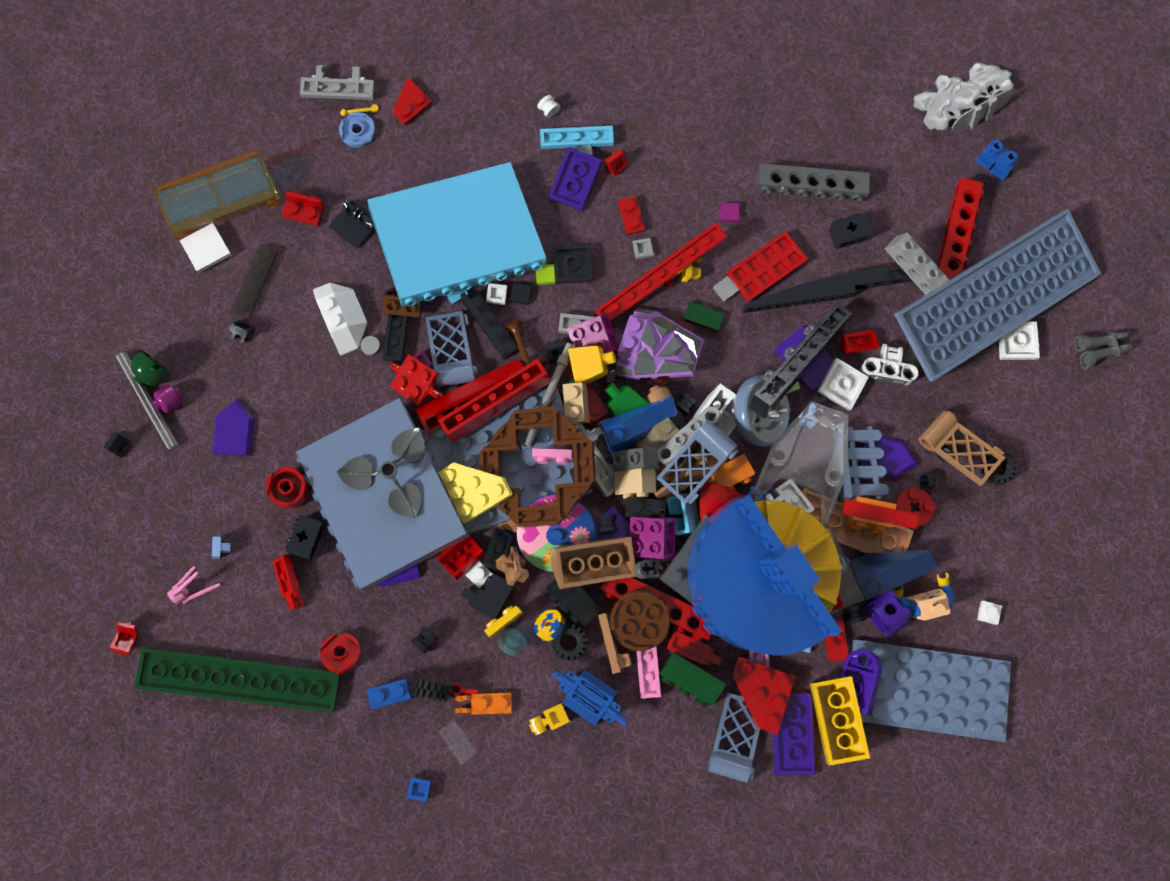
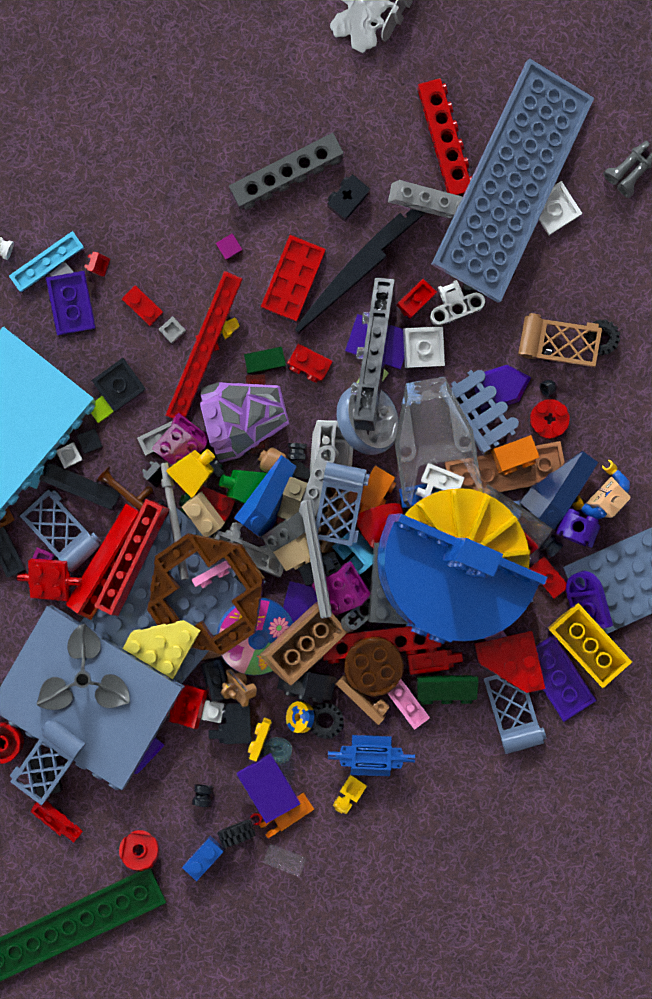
camera: 25 degrees left, 10 degrees up
(337, 516) = (59, 740): none -> sand blue piece
(419, 789) = (277, 918): blue plate -> none
(484, 668) = (268, 788): none -> dark purple tile
(607, 524) = (295, 601): black wheel -> none
(648, 496) = (316, 559): none -> light grey axle
(726, 289) = (269, 321): light grey tile -> none
(738, 340) = (309, 363): none -> red bracket
(880, 514) = (522, 452): red sticker -> none
(1004, 159) = (440, 41): blue hips -> none

